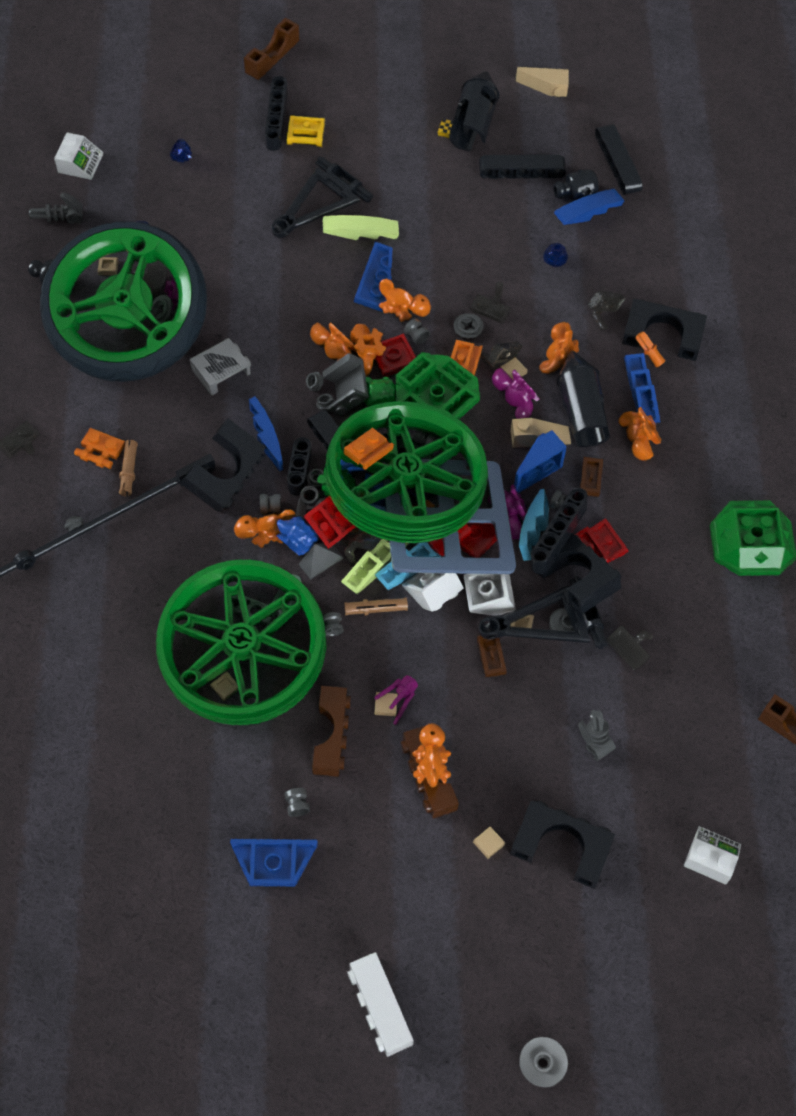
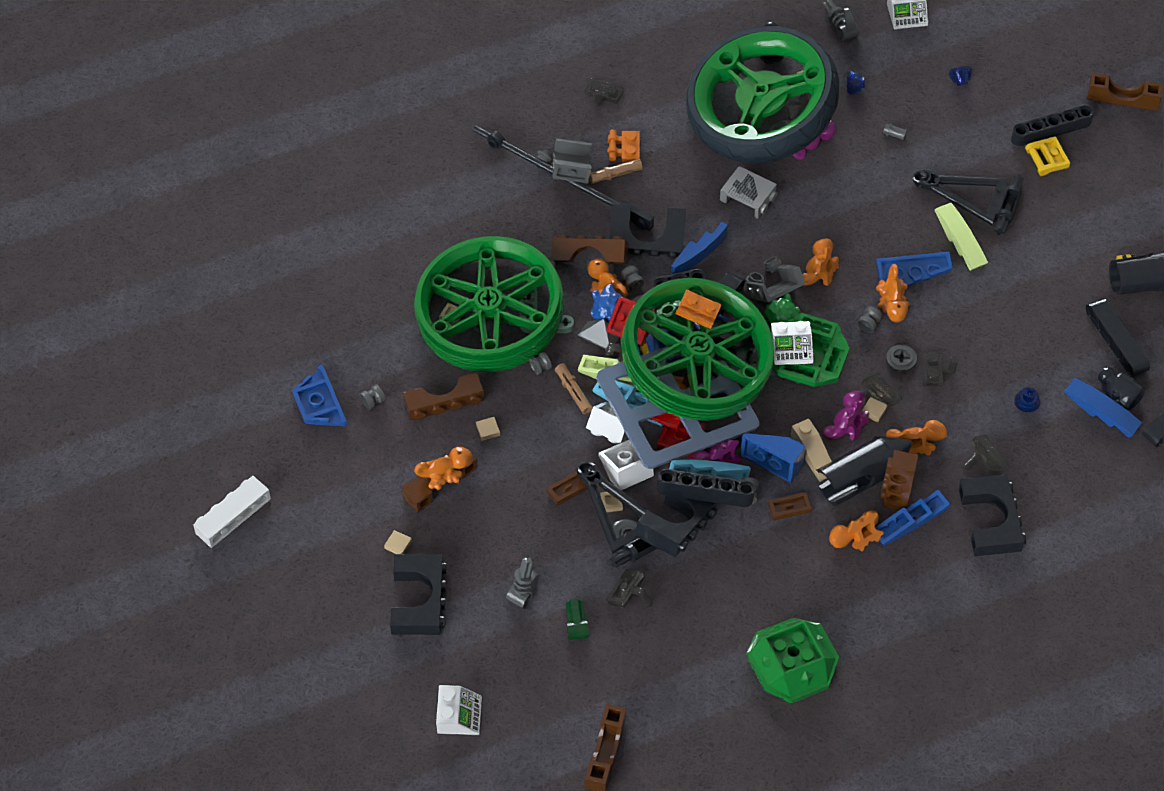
camera: 70 degrees right, 5 degrees down
(96, 501) = (571, 161): none -> dark grey panel
(207, 545) = (566, 249): none -> reddish brown arch
(214, 226) = (894, 131): none -> dark grey pin
(367, 345) = (827, 282): orange animal -> none
(396, 356) = (835, 309): red plate -> none
(405, 689) = (507, 433): magenta plant -> none
(433, 390) = (792, 343): none -> slope
(467, 355) = (861, 366): orange plate -> none
(545, 1049) = (227, 630): light grey dish -> none
(603, 541) = (723, 536): red slope -> none
(621, 372) = (898, 480): none -> reddish brown brick
(650, 349) = (956, 507): orange axle -> none
(654, 706) = (577, 625): none -> dark green piece

